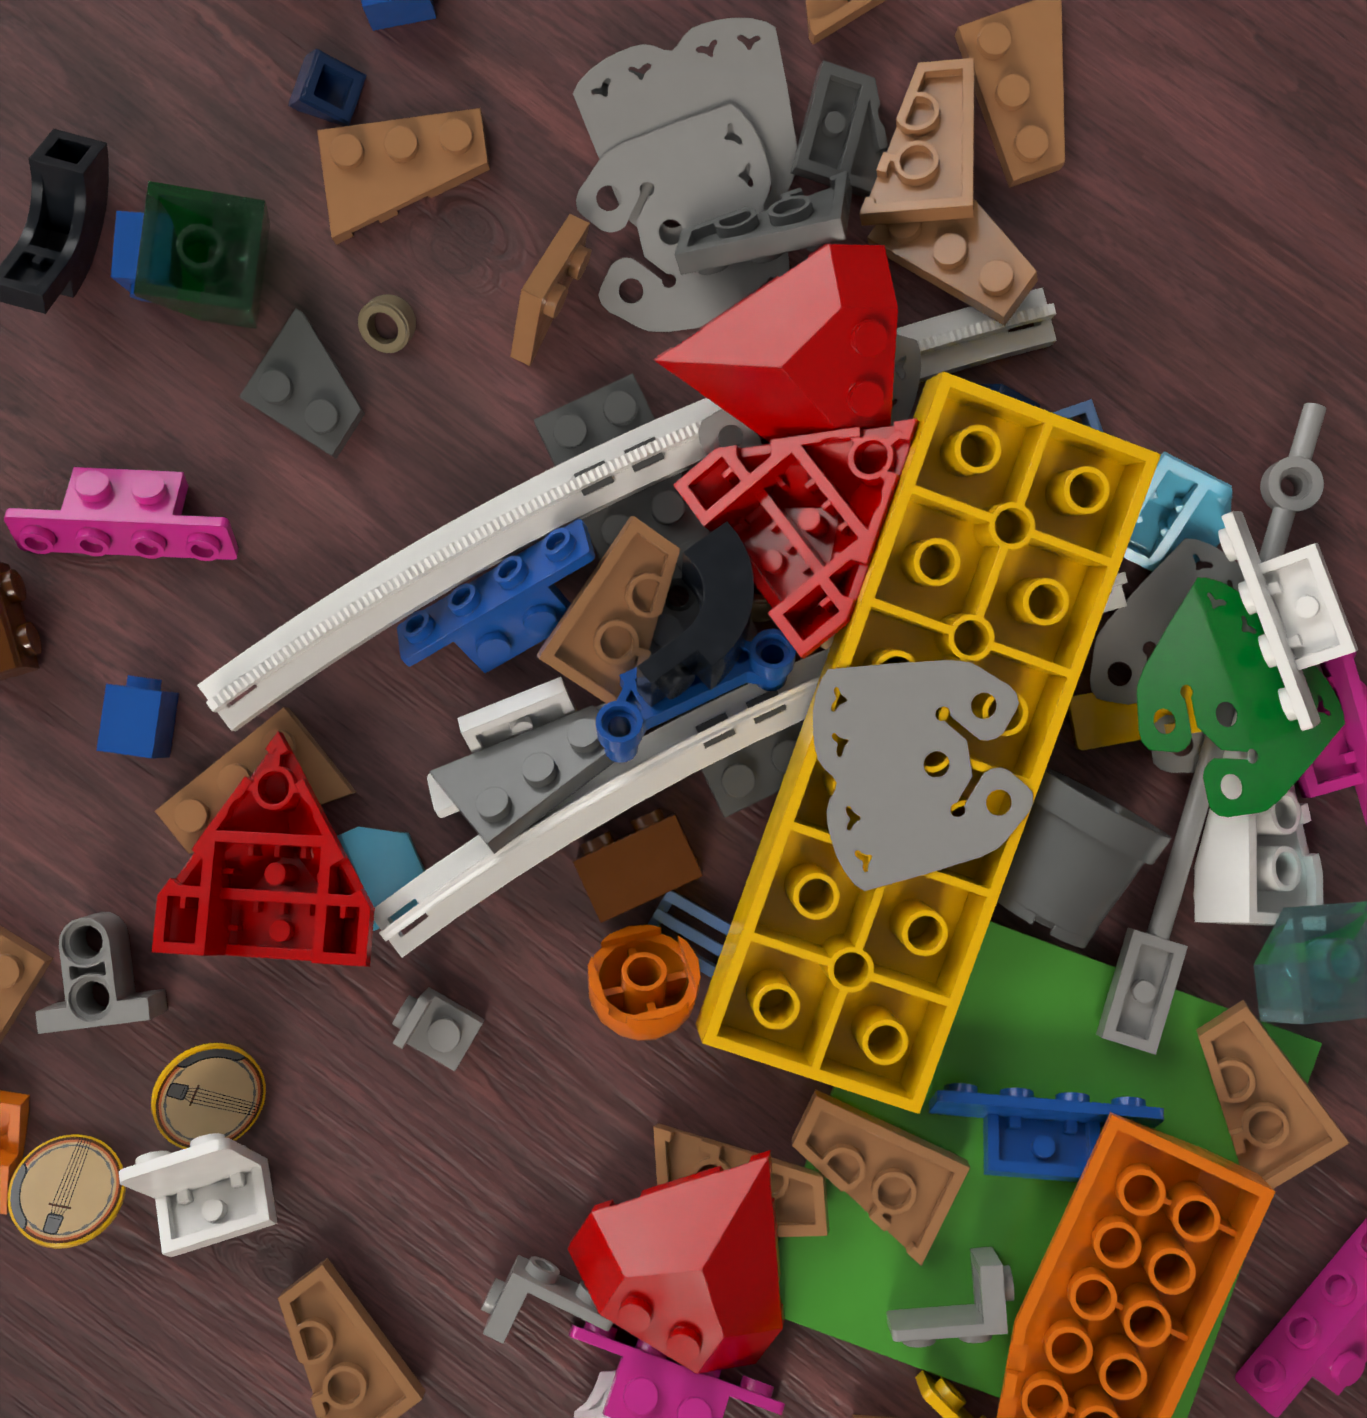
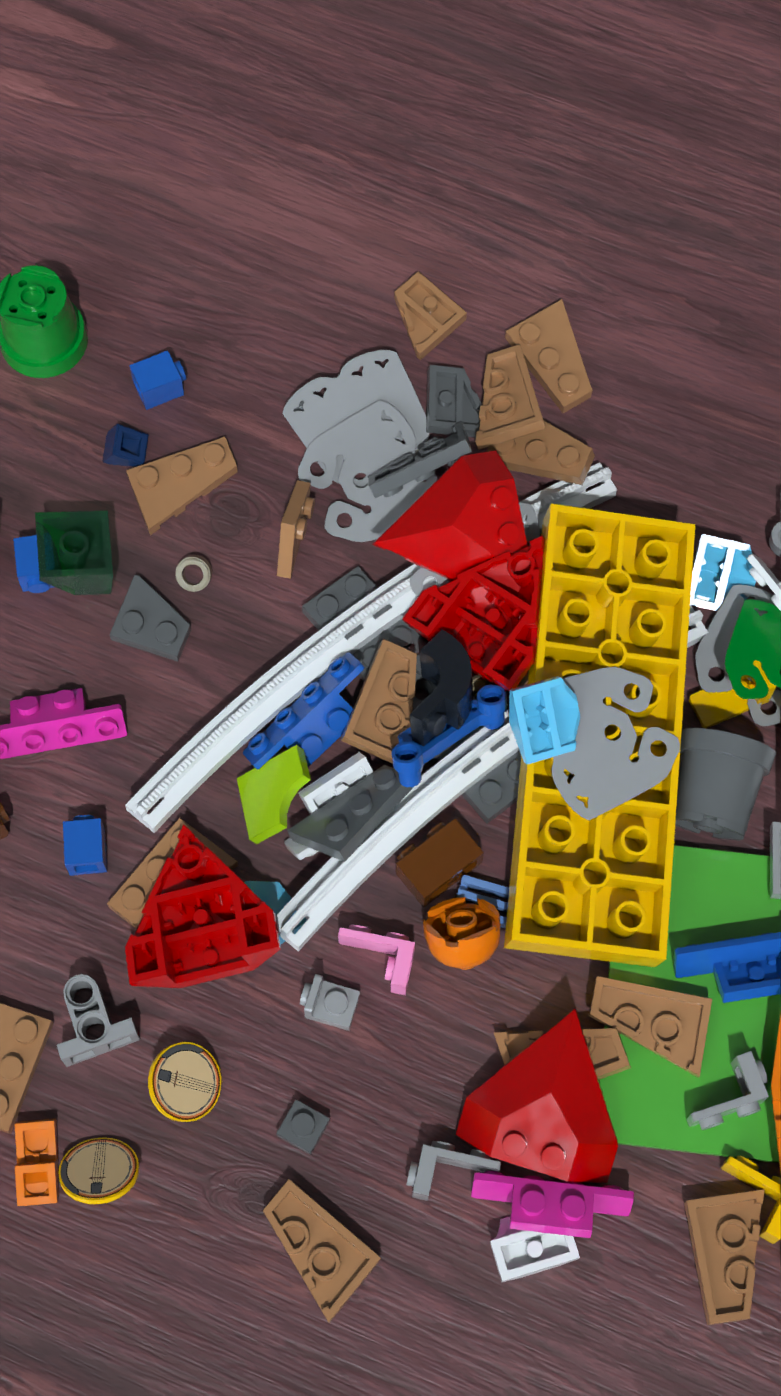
camera: 15 degrees left, 20 degrees down
(204, 1192) = (194, 1141): white bracket -> none
(362, 1189) = (303, 1127): none -> dark grey plate
(418, 706) = (269, 792): none -> lime tile
(547, 969) = (393, 943): none -> bright pink bracket
(836, 734) = (544, 719): none -> medium azure slope

